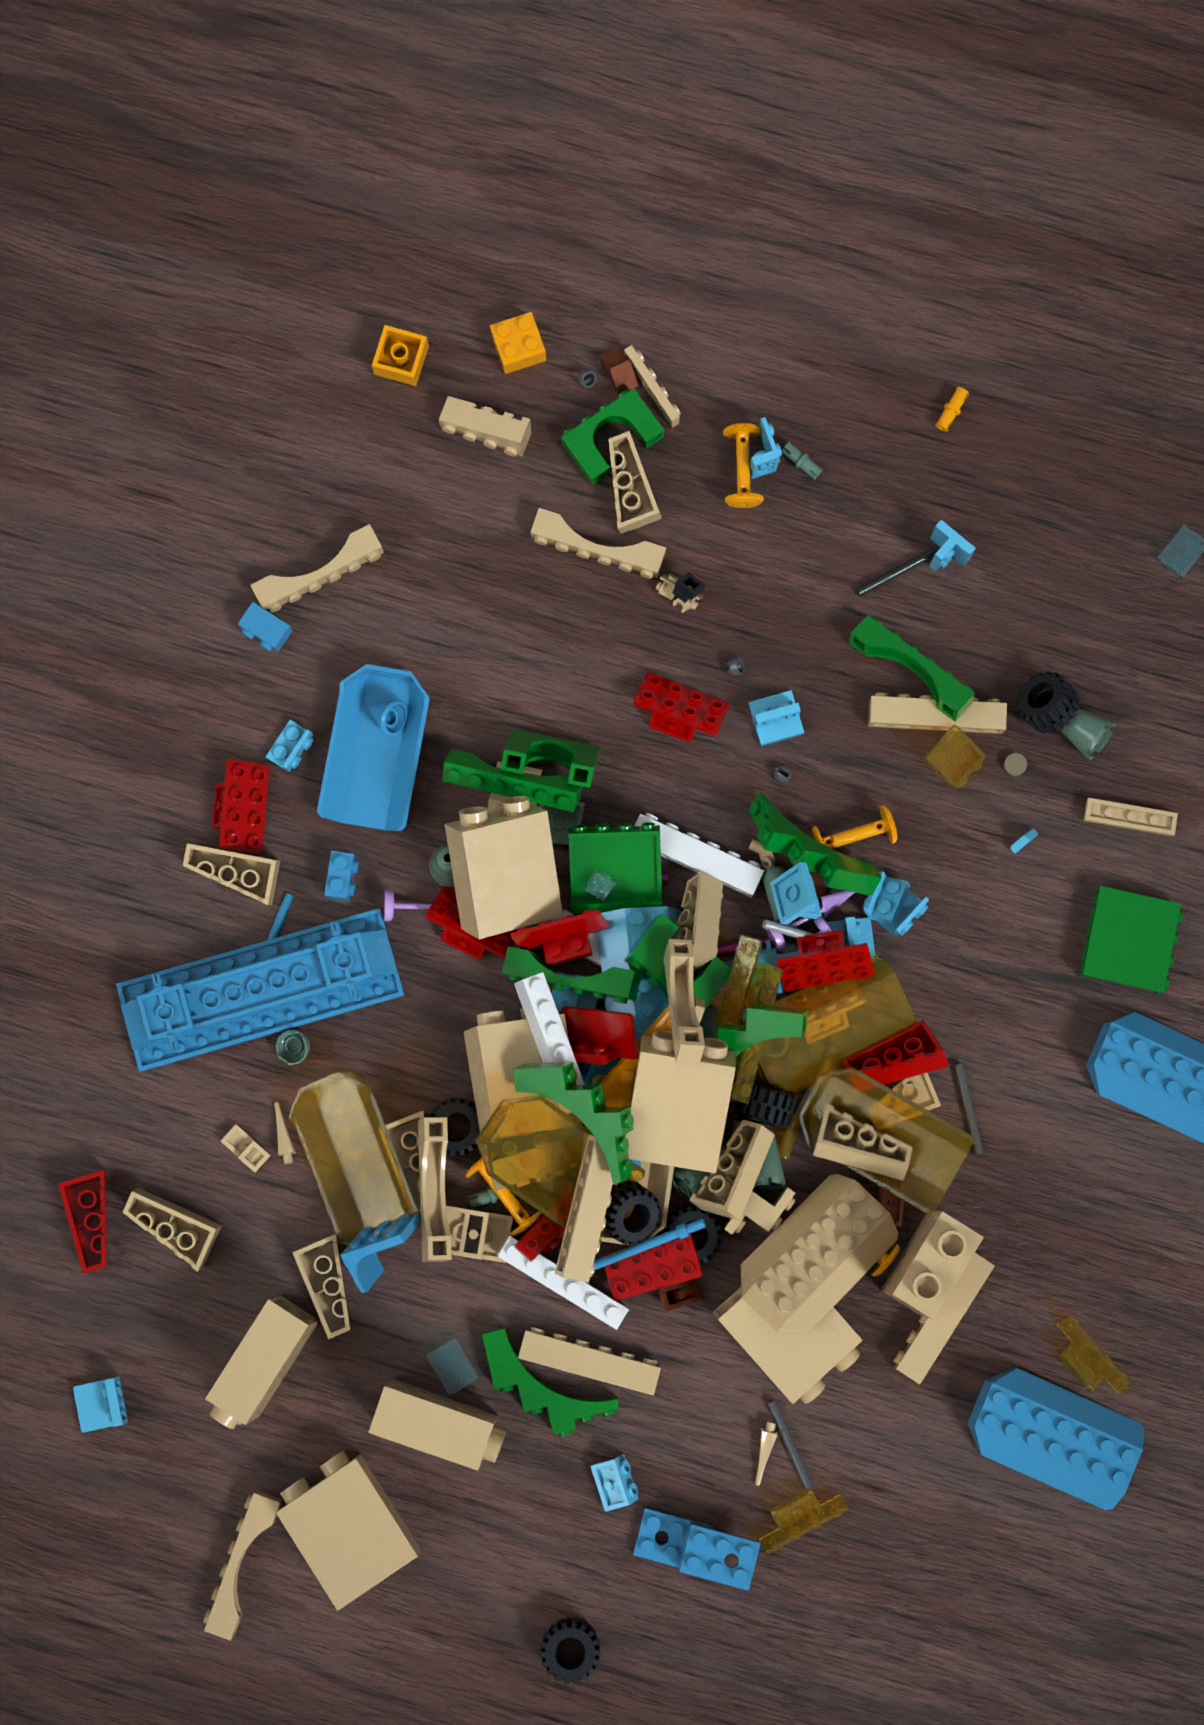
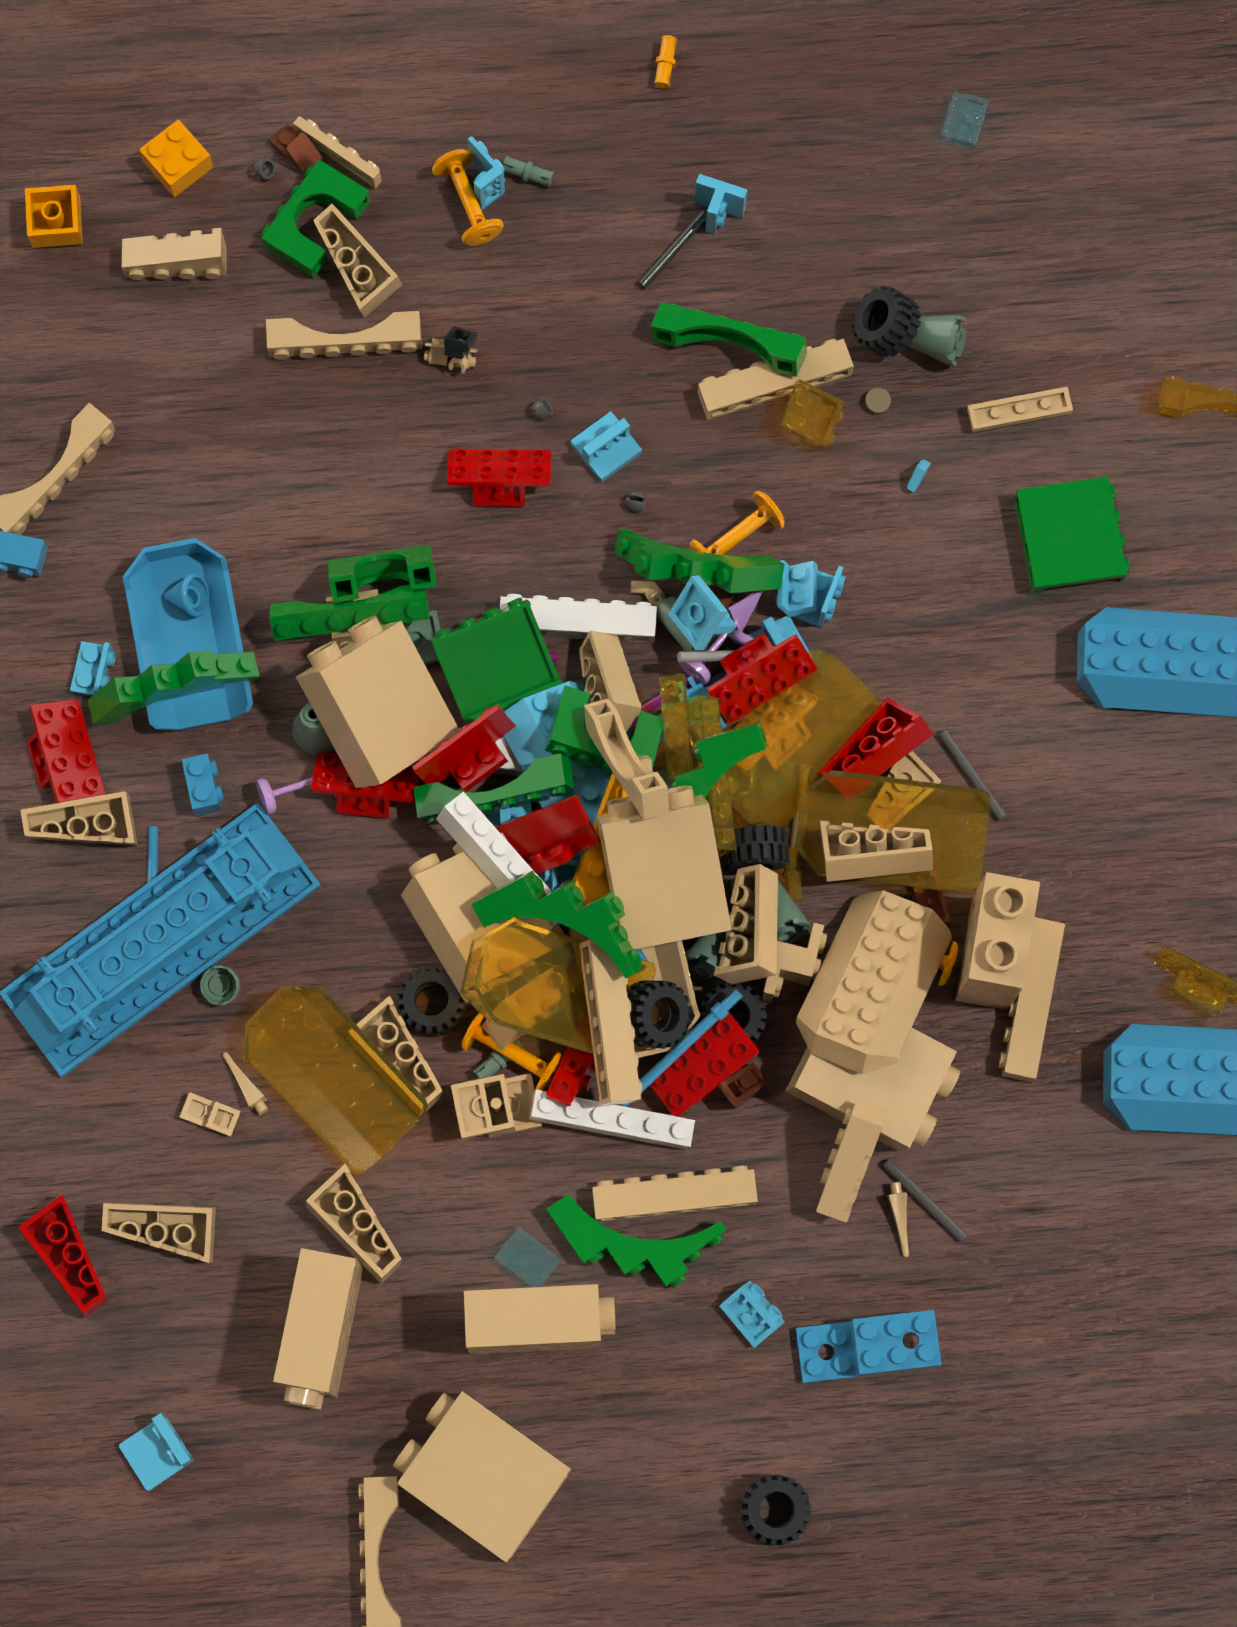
camera: 25 degrees left, 5 degrees down
(341, 783) = (162, 681): none -> green arch
(361, 1254) = (380, 1173): dark azure bracket -> none
(432, 1159) = (449, 1105): tan arch -> none
(599, 884) = (486, 687): clear light blue tile -> none
(740, 1395) = (850, 1159): none -> tan wedge
(799, 1517) = (964, 1269): clear yellow bracket -> none

